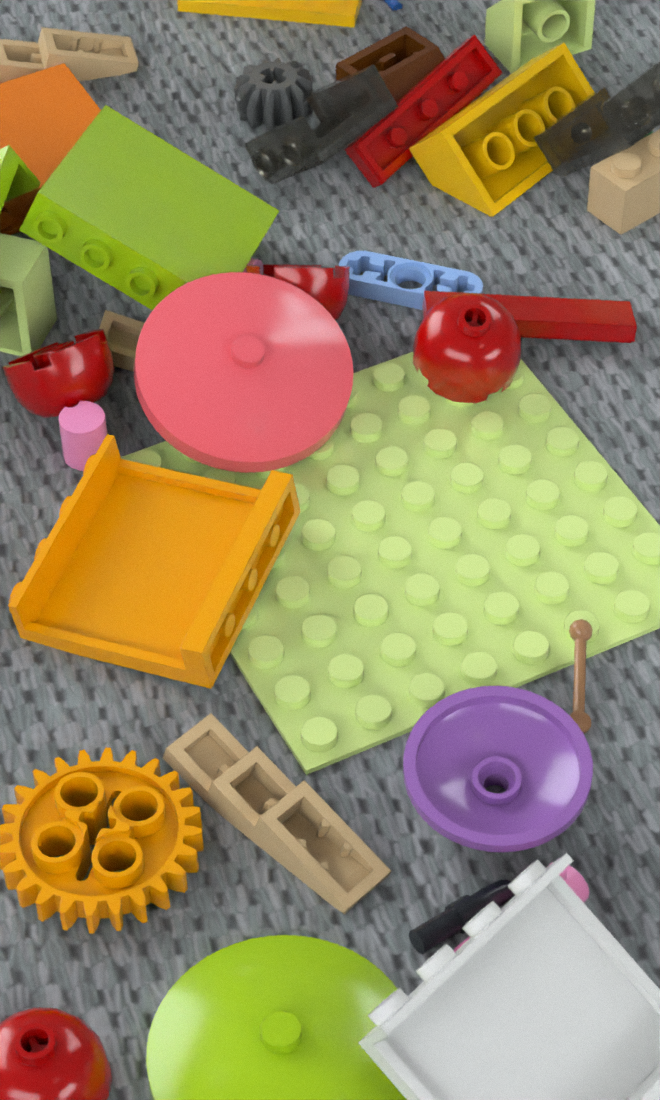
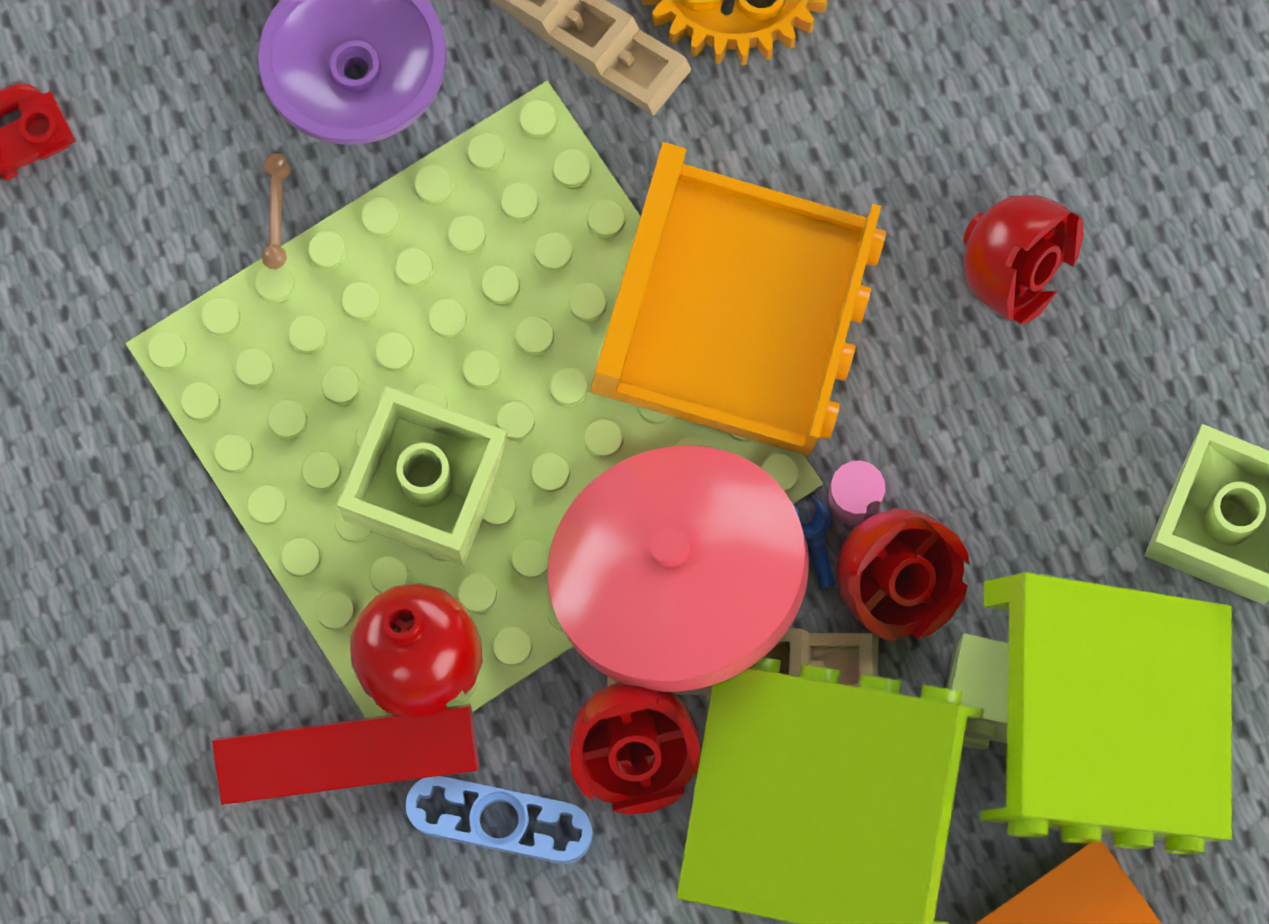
camera: 175 degrees right, 30 degrees up
(127, 427) = (814, 536): none -> blue hand
(453, 438) = (423, 475): none -> yellowish green slope

